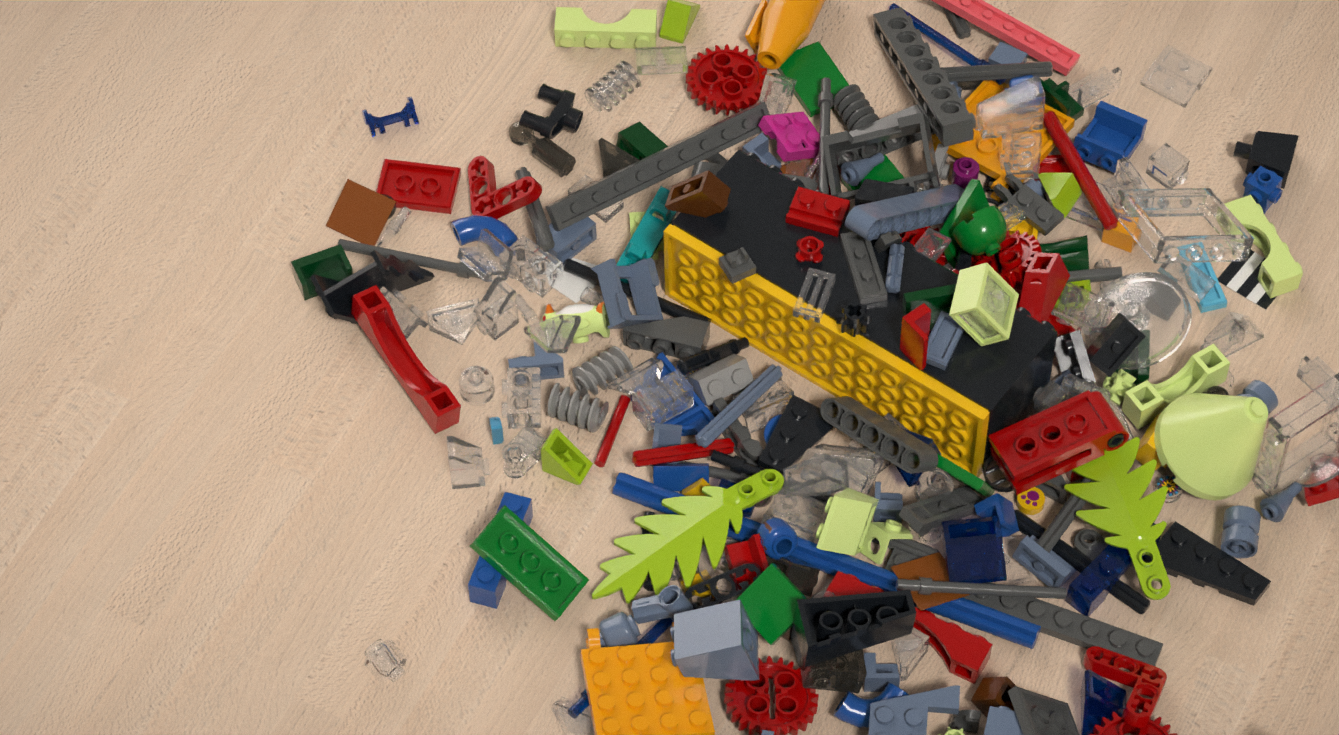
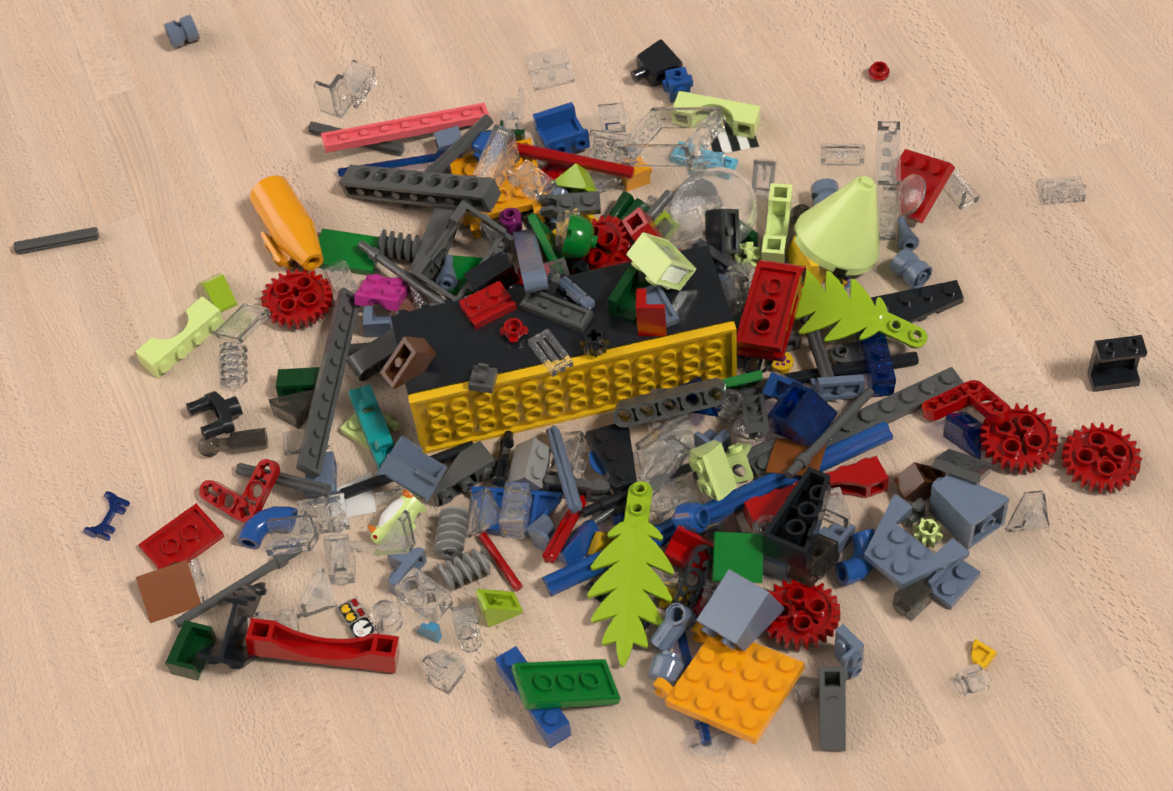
camera: 45 degrees left, 0 degrees up
(459, 359) = (355, 618): none -> tile

